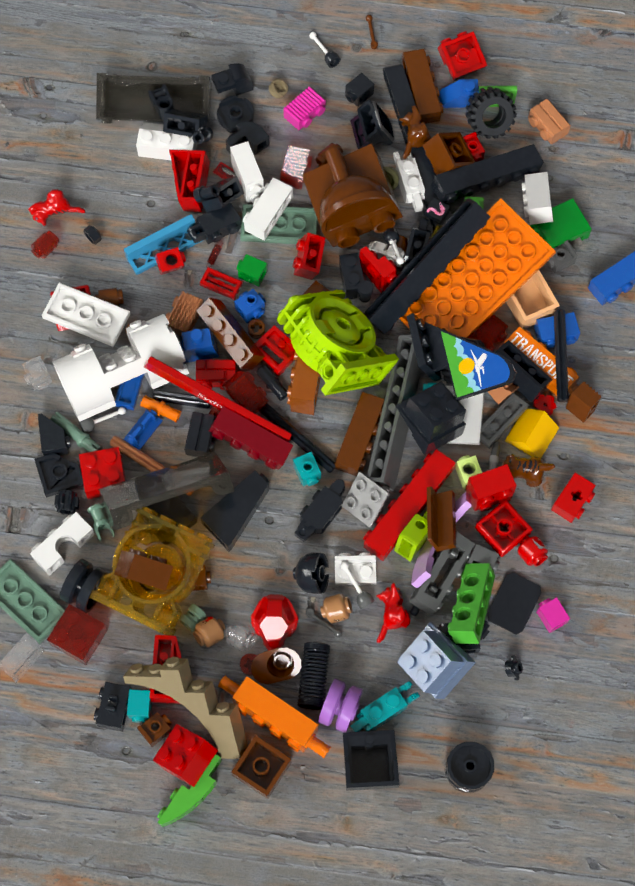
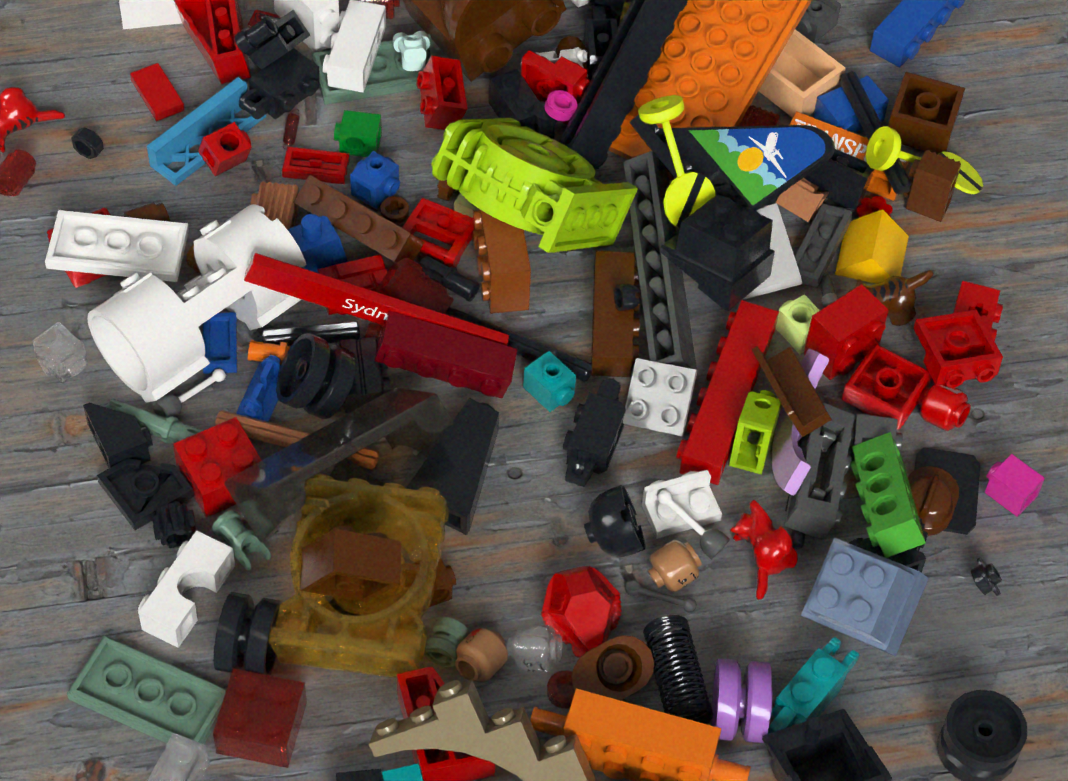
camera: 20 degrees left, 15 degrees down
(144, 207) = (157, 92): none -> red tile
(171, 433) = (316, 376): none -> black wheel
(301, 219) = (412, 49): none -> light aqua plate
(366, 429) = (625, 297): none -> black hinge
(374, 286) = (560, 105): none -> dark pink tile
(392, 237) = (563, 37): black hinge -> none
(422, 375) = (689, 189): none -> neon yellow piece
(503, 607) = (934, 496): none -> reddish brown piece
(551, 519) = (958, 348): none -> red plate
(600, 347) = (926, 112): none -> reddish brown brick
(604, 386) = (885, 149): none -> neon yellow piece

